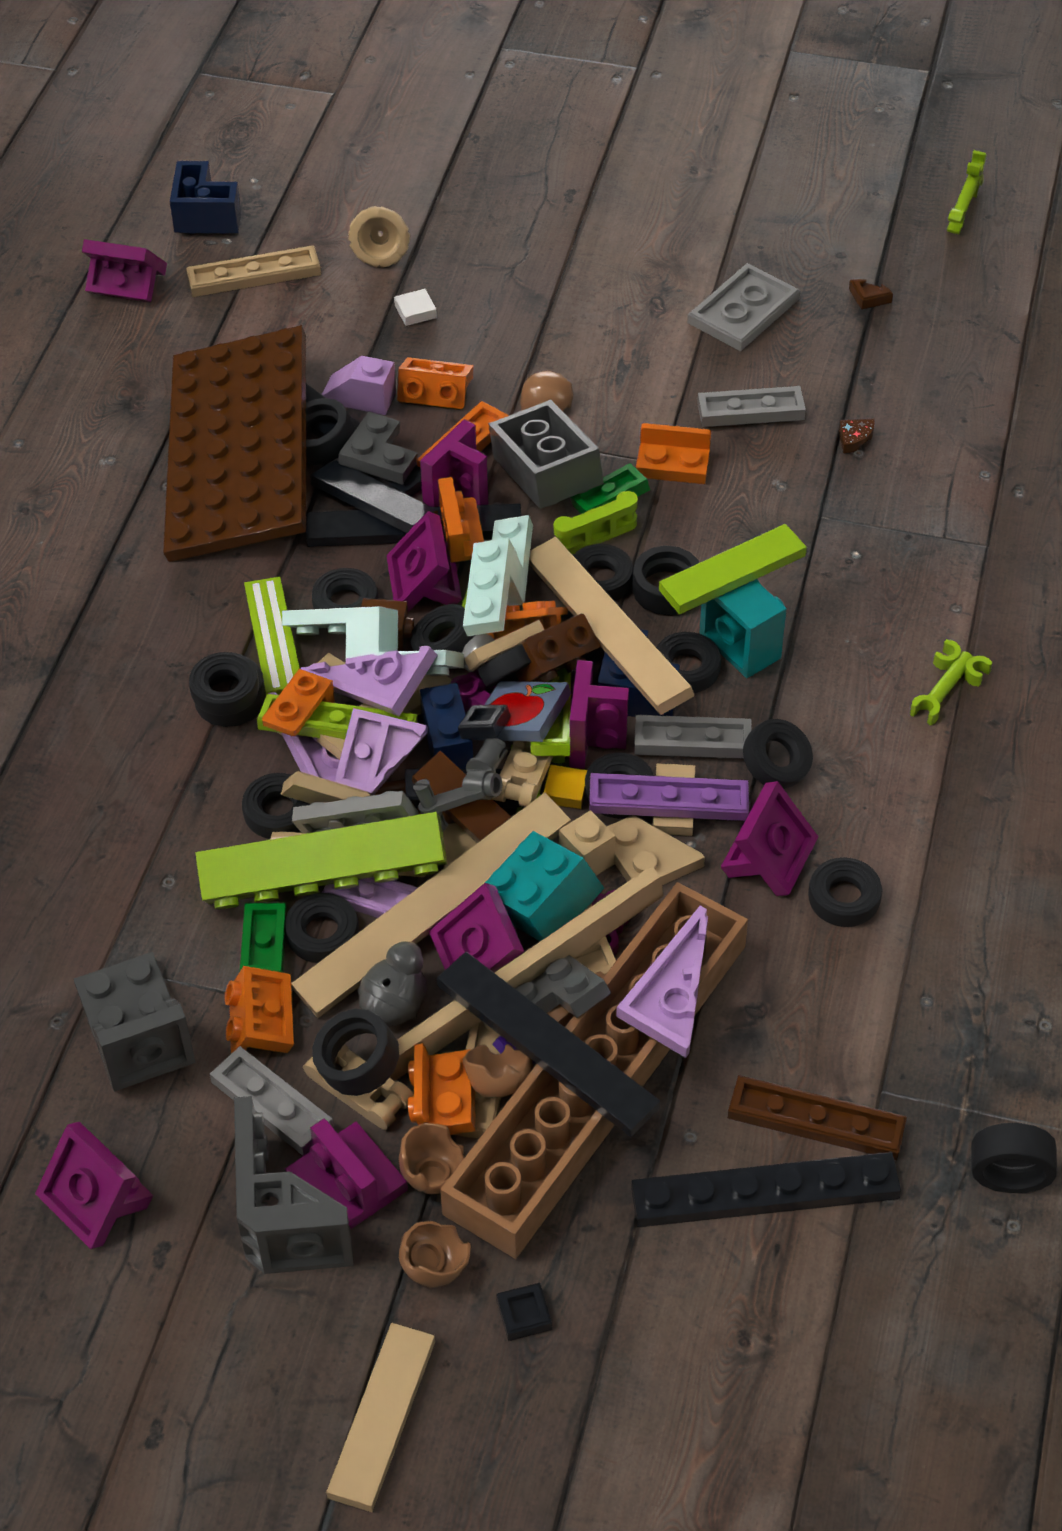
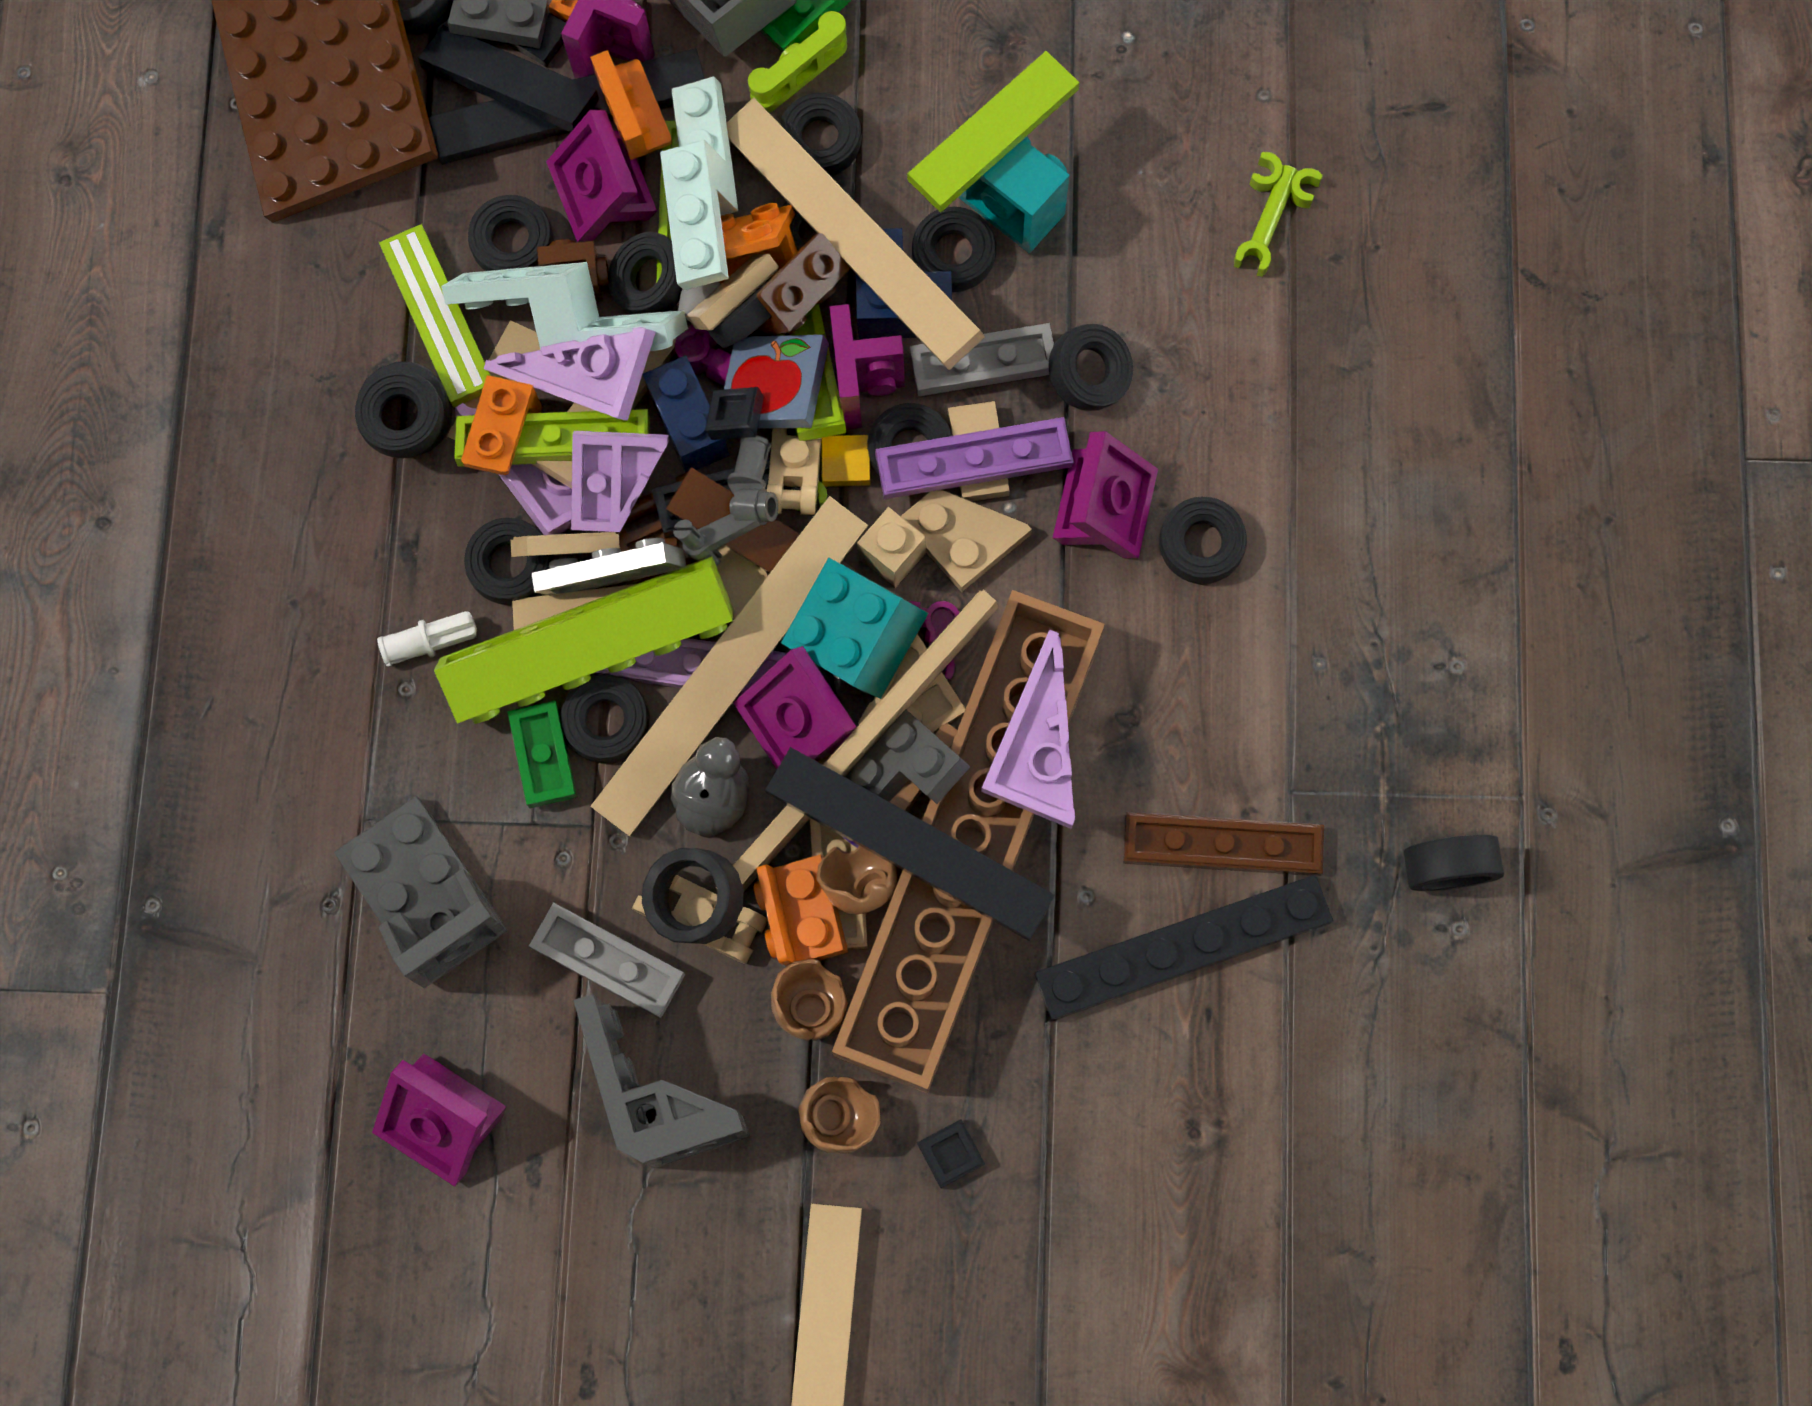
camera: 10 degrees left, 25 degrees up
(186, 845) = (427, 638): none -> white axle
(260, 1010) = (563, 849): orange bracket -> none
(349, 1170) = (715, 1036): magenta bracket -> none
(654, 561) = (894, 99): black tyre -> none

